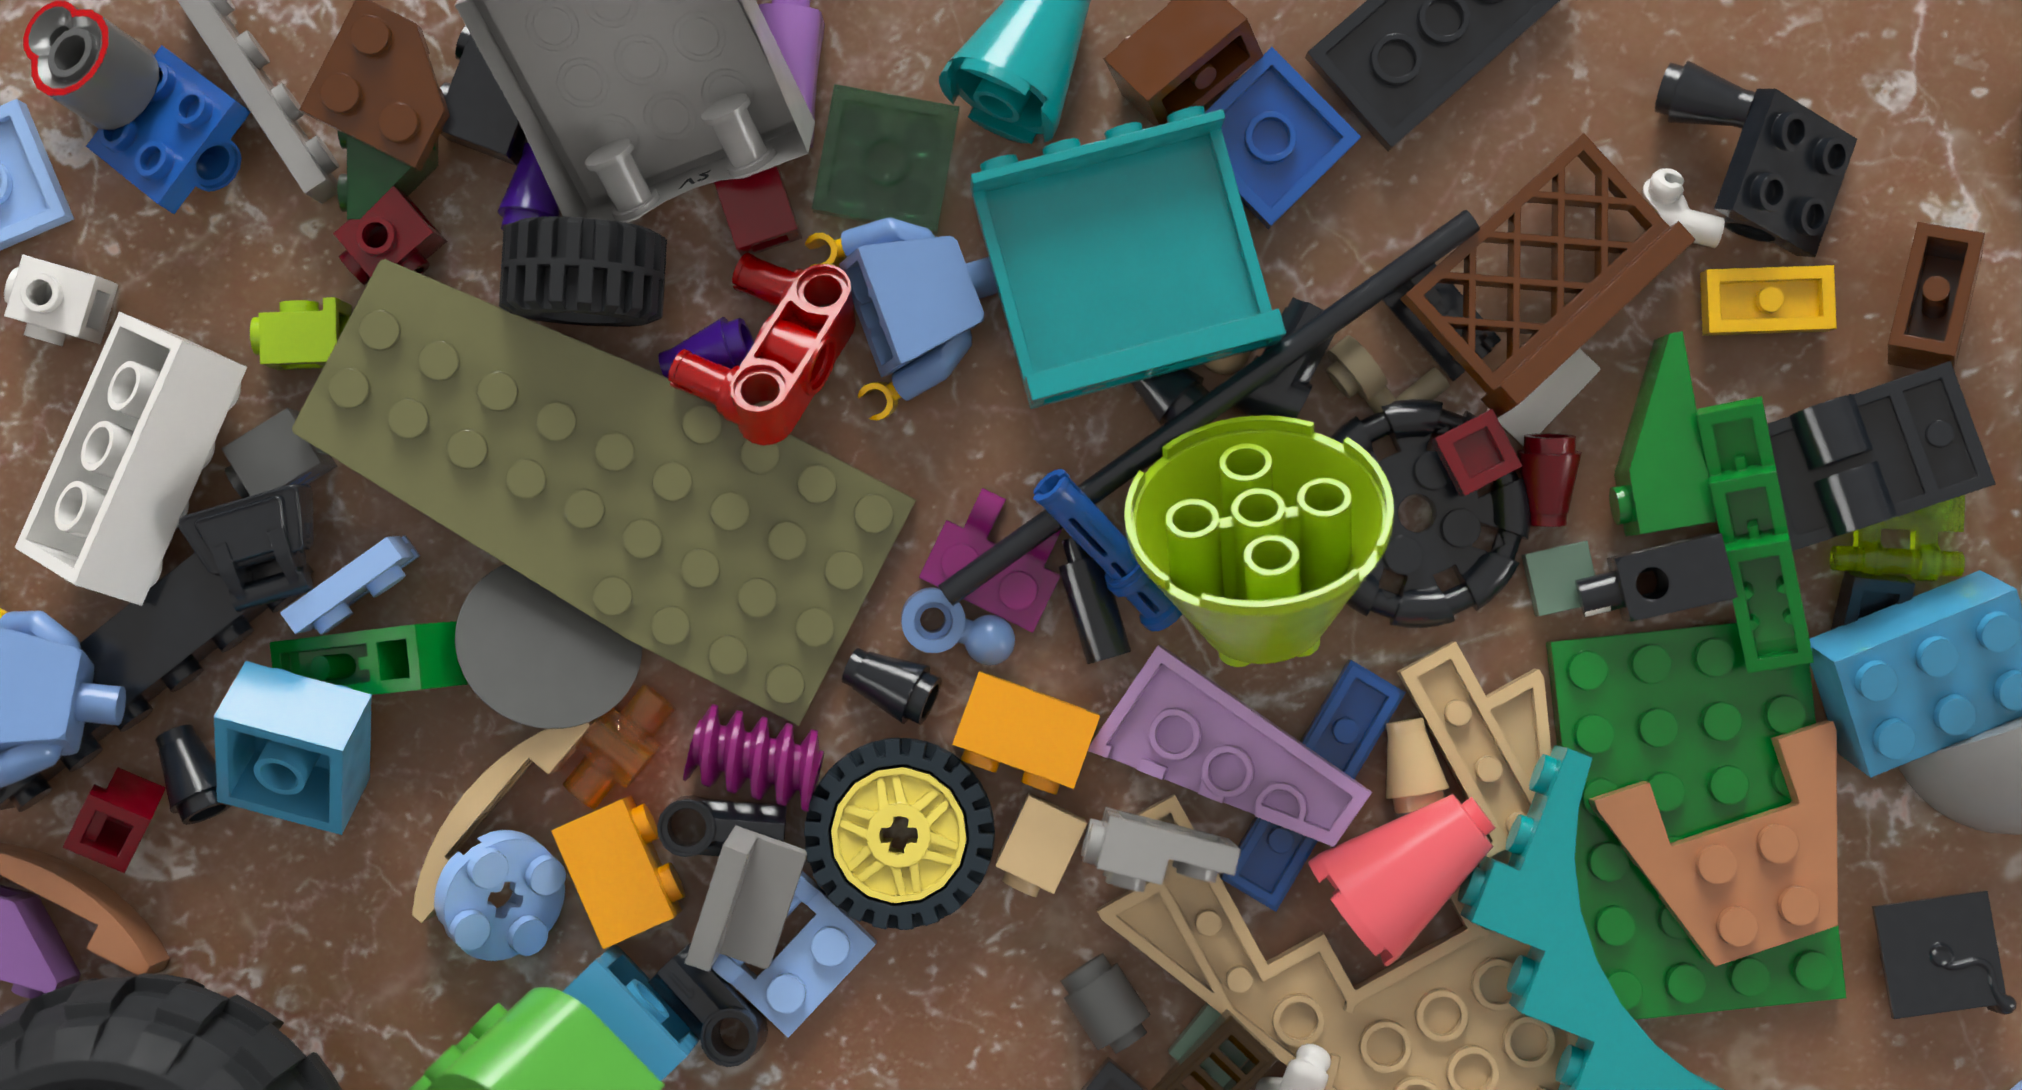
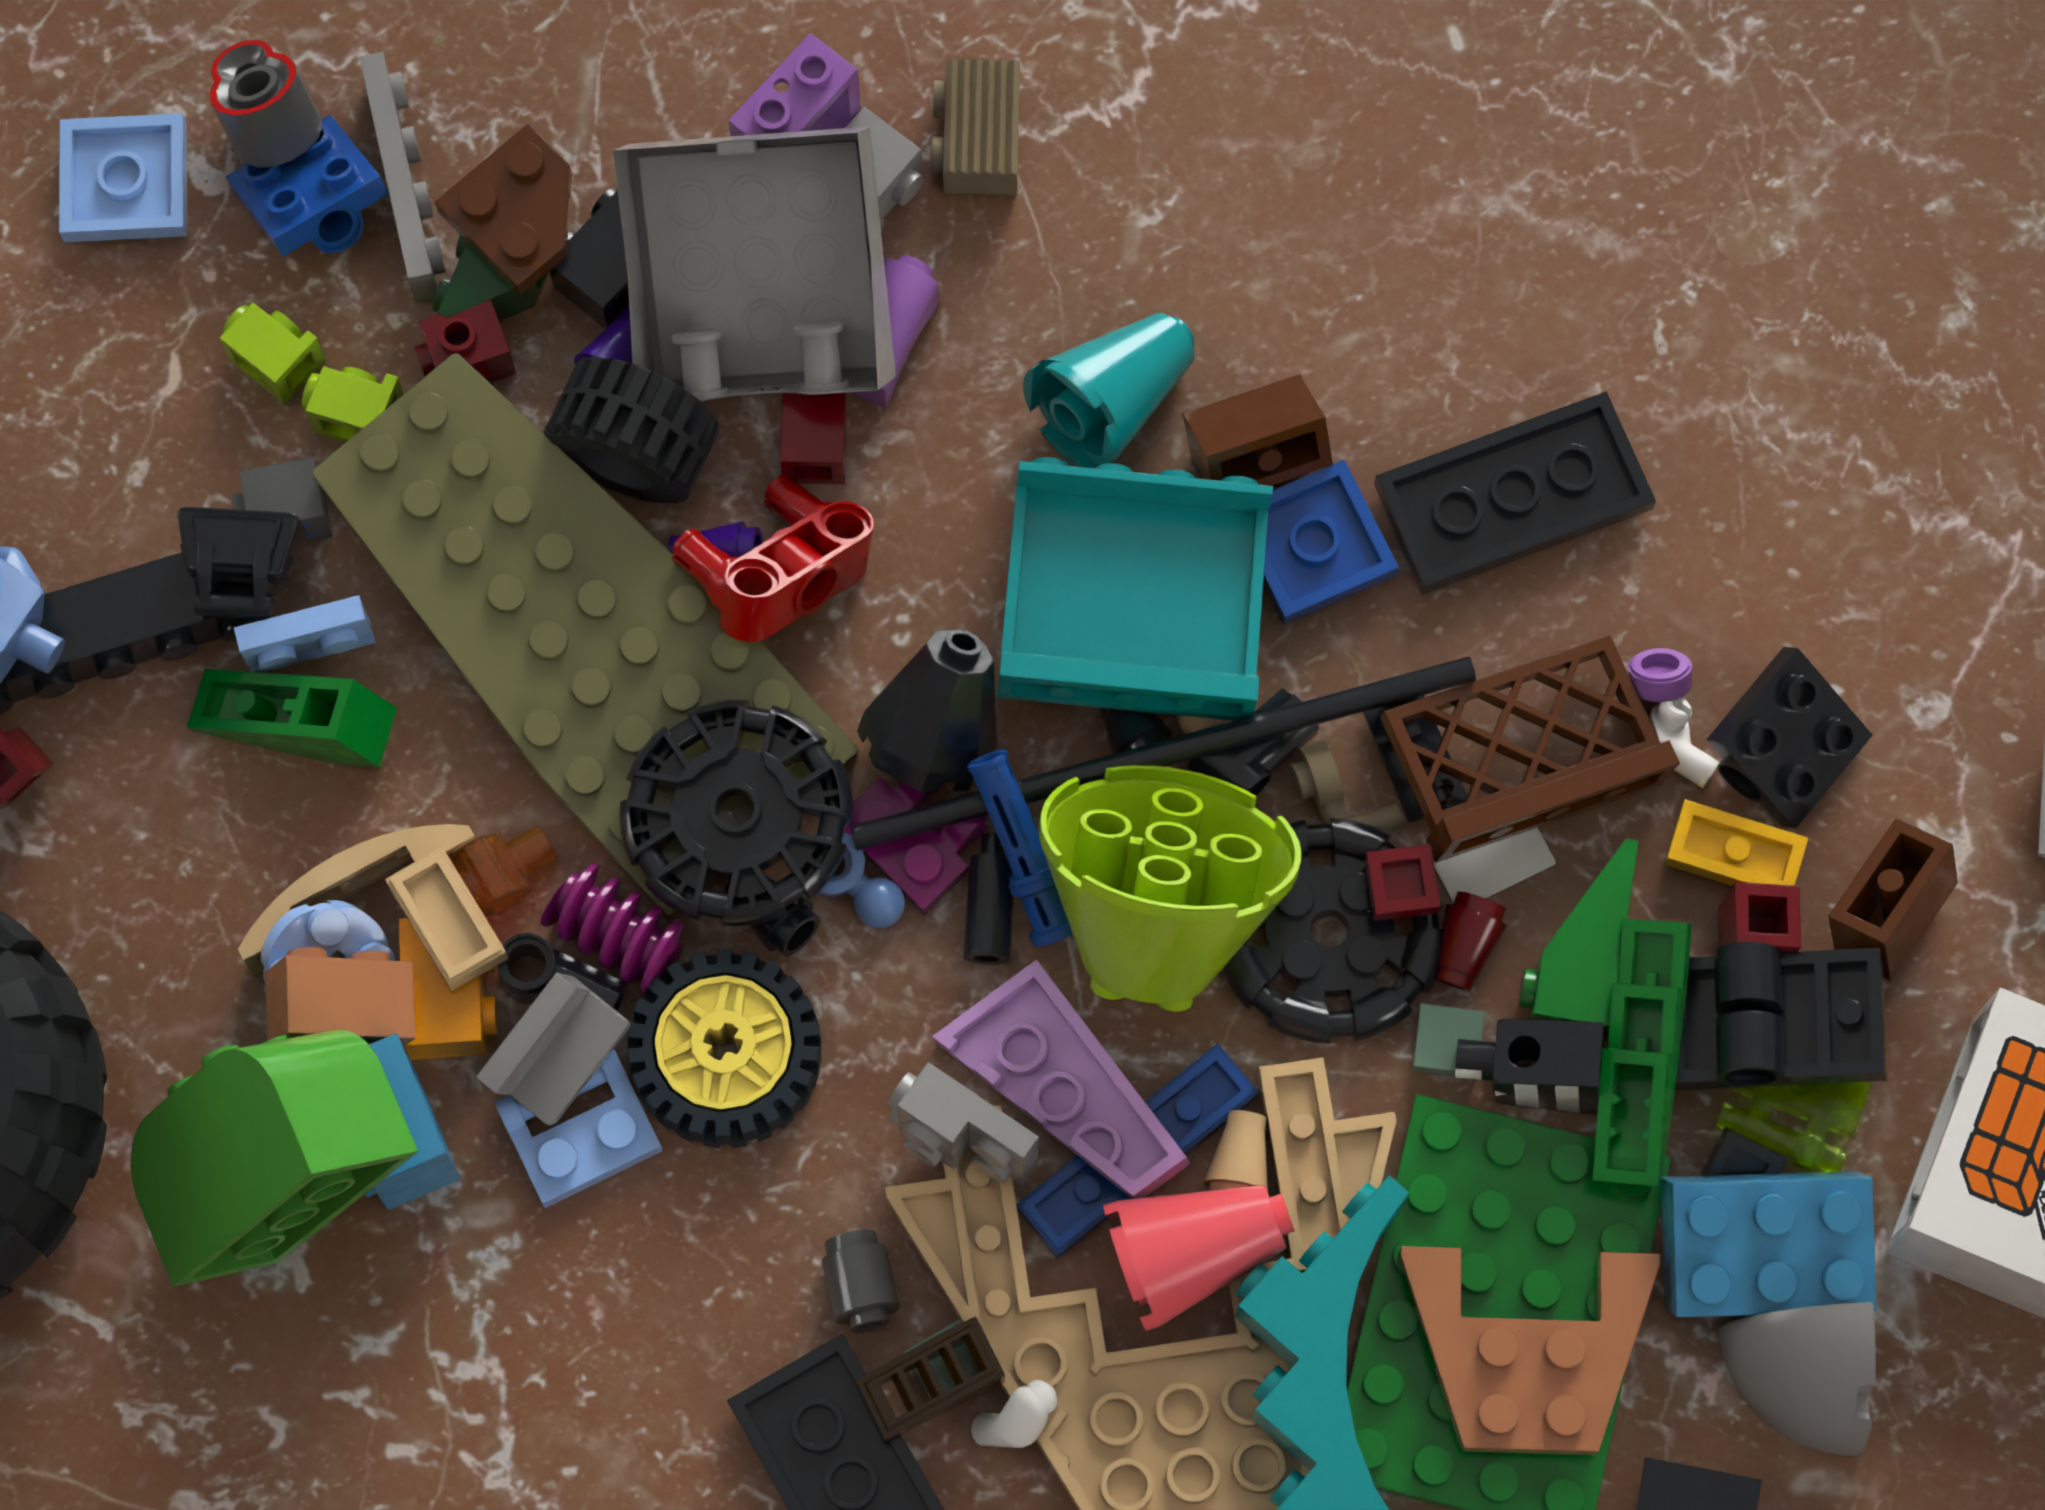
camera: 20 degrees right, 15 degrees down
(58, 301) = (145, 298): white brick -> none
(130, 460) = (155, 450): white brick -> none
(189, 775) = (83, 761): black cone -> none
(201, 307) = (271, 350): none -> lime brick
(293, 747) = (192, 757): dark azure brick -> none
(530, 942) = (355, 994): none -> nougat brick
(539, 654) = (455, 757): dark grey sticker -> none
(596, 817) = (446, 919): none -> tan tile
(703, 1002) = (478, 1143): black piece -> none
(867, 606) = (742, 849): none -> black plate
(885, 157) = (949, 438): clear green plate -> none
(912, 301) = (923, 567): medium blue torso -> none
(979, 453) = (935, 714): none -> black cone
(1025, 732) = (879, 995): light orange brick -> none
(1039, 846) = (850, 1106): tan brick -> none
(1642, 152) = (1660, 674): none -> medium lavender tile
(1701, 97) = (1730, 641): black cone -> none
(1820, 369) = (1761, 915): none -> dark red brick

